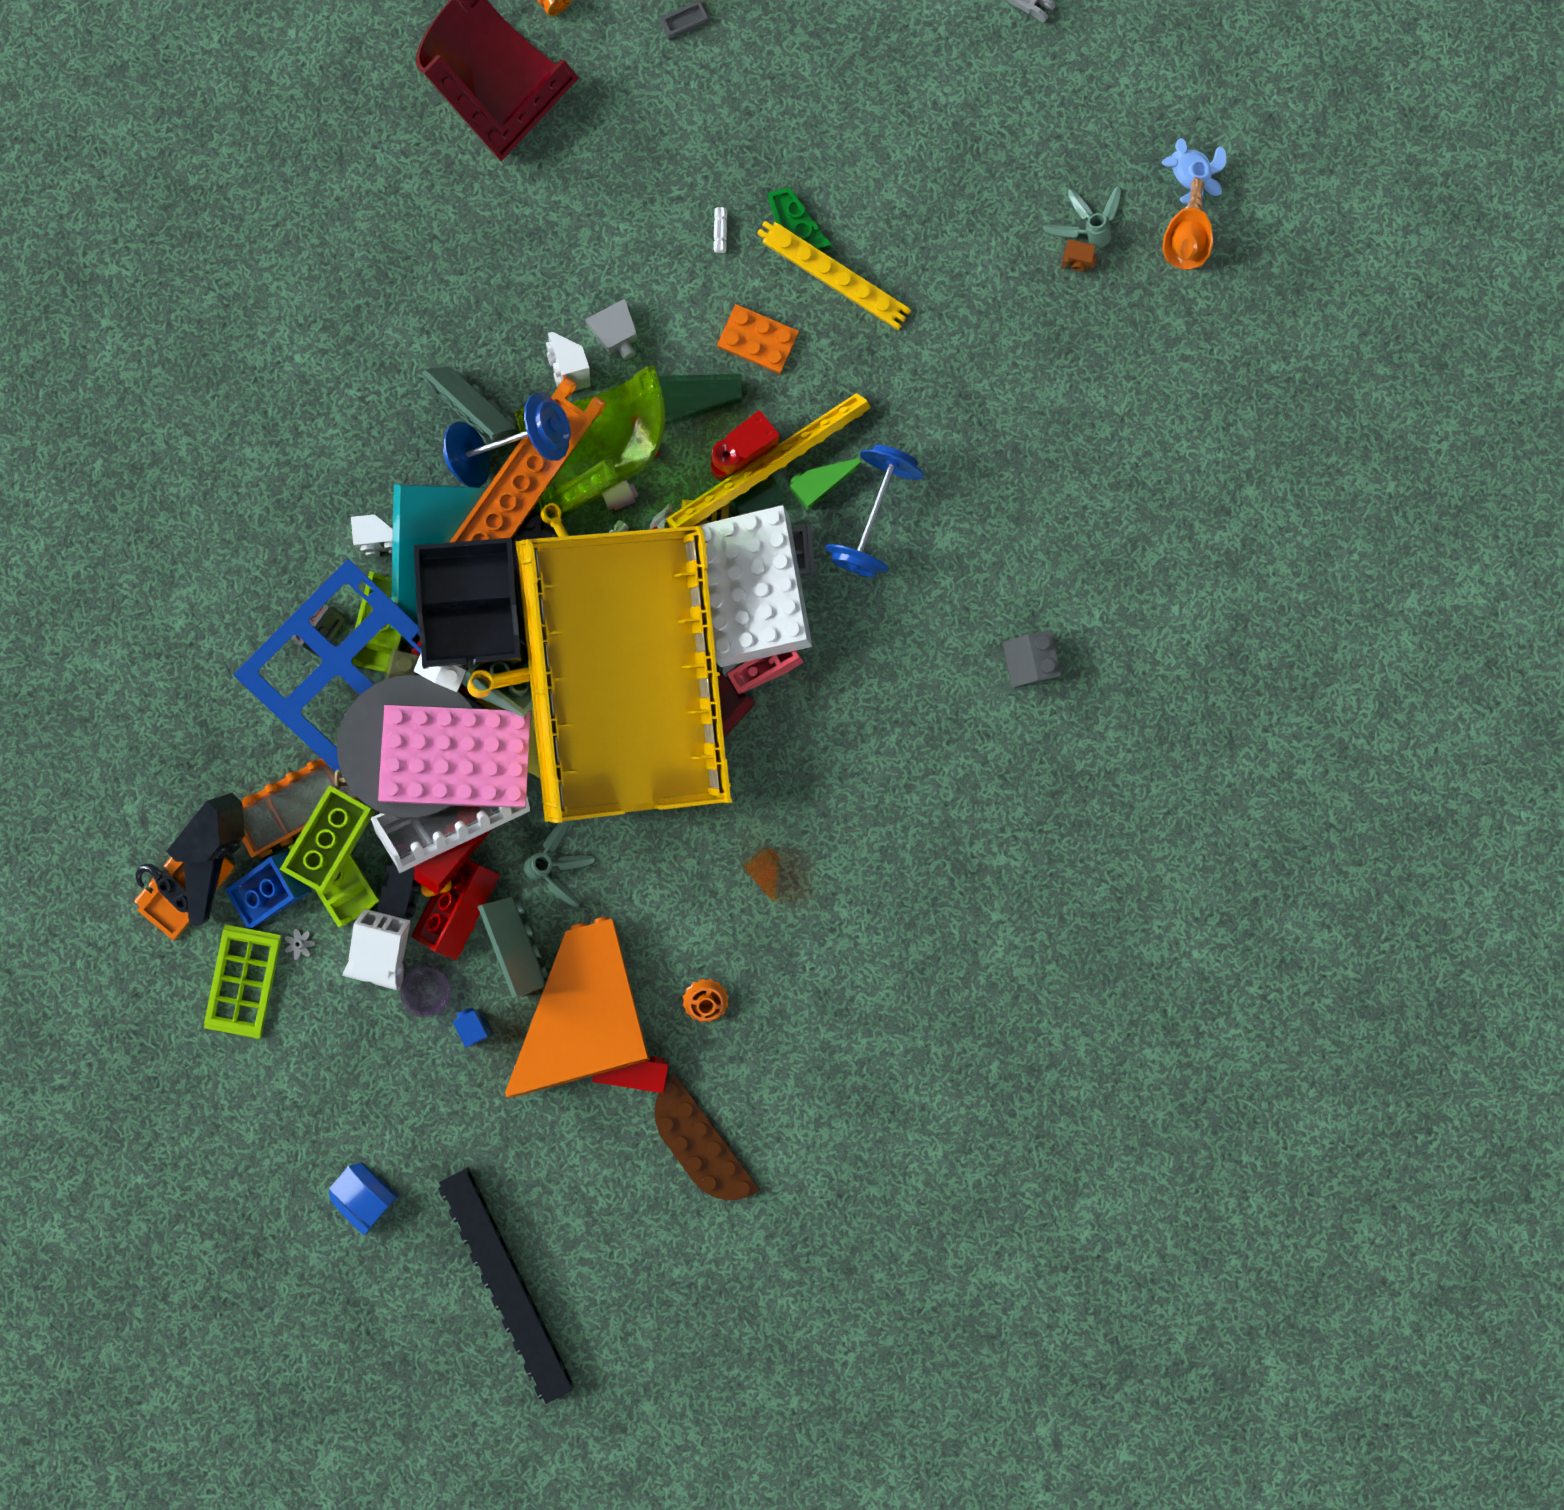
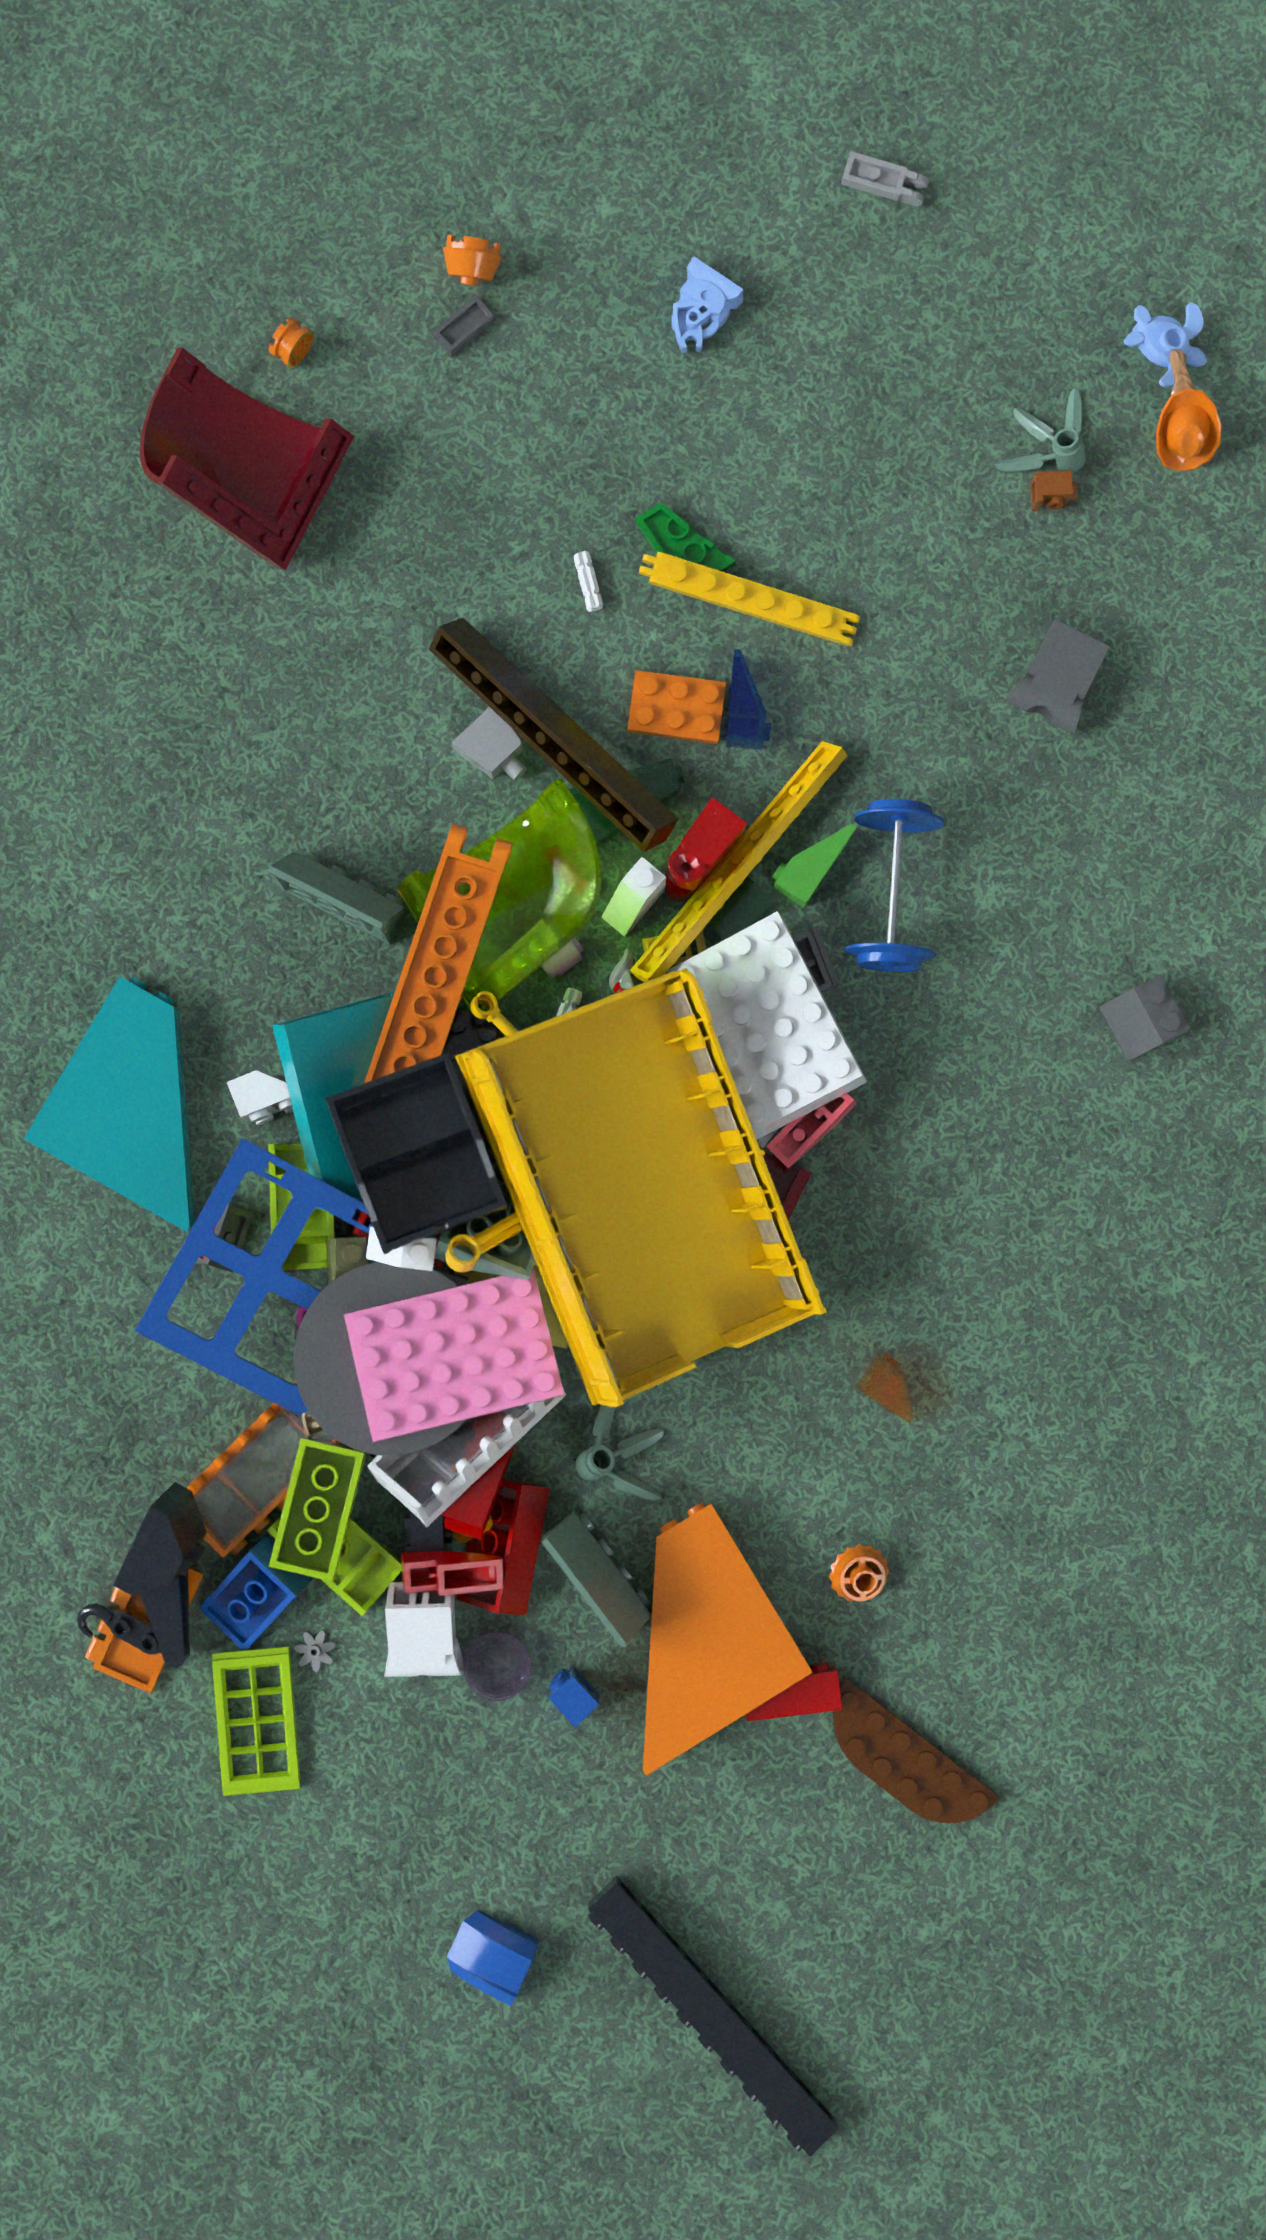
camera: 20 degrees left, 0 degrees up
(276, 514) = (124, 1105): none -> teal slope
(409, 912) = (451, 1572): none -> red slope
(545, 426) = (352, 958): blue axle -> none
(568, 360) = (445, 802): white slope -> none
(659, 333) = (553, 734): none -> dark brown brick
(685, 467) = (634, 896): none -> slope
(805, 358) = (746, 711): none -> clear blue slope
(862, 51) = (703, 302): none -> light blue piece
(1042, 392) = (1060, 676): none -> dark grey piece

